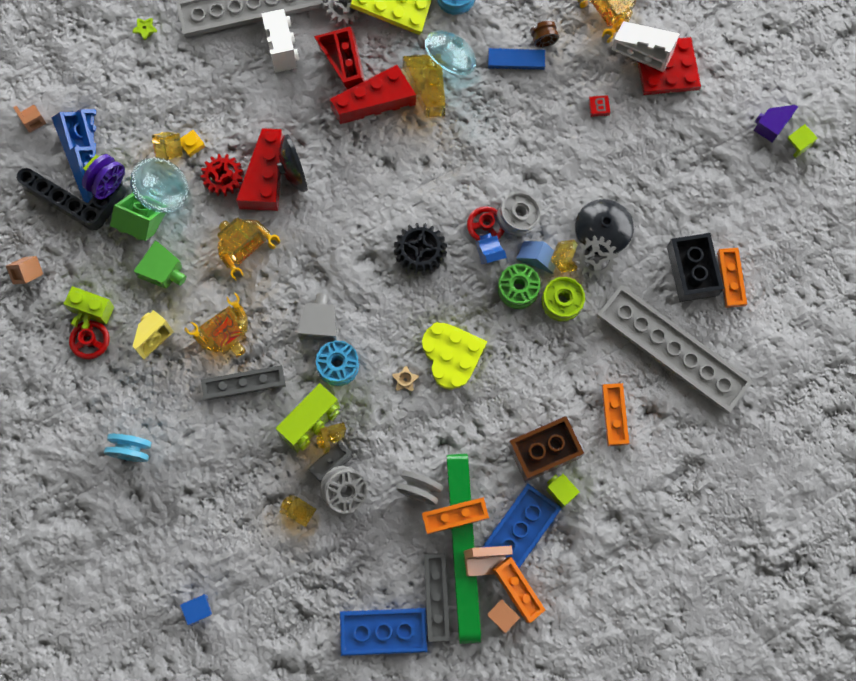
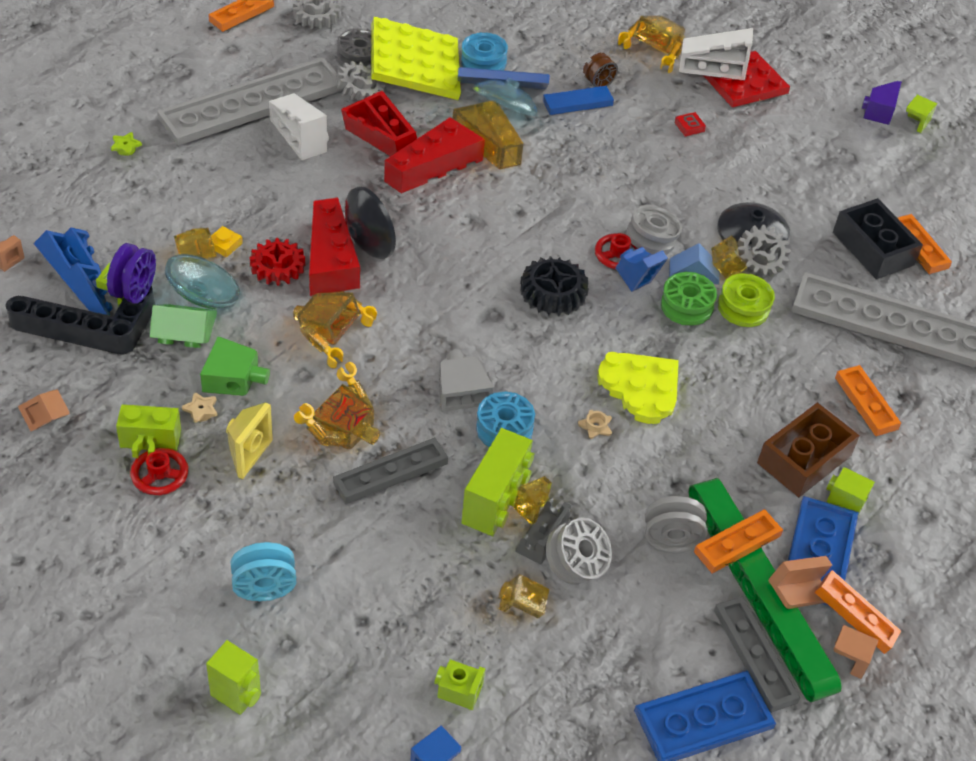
camera: 20 degrees left, 25 degrees down
(86, 522) = (234, 677): none -> lime brick
(135, 297) = (204, 413): none -> tan plate
(236, 568) = (460, 683): none -> lime brick
(458, 27) = (526, 79): none -> blue tile

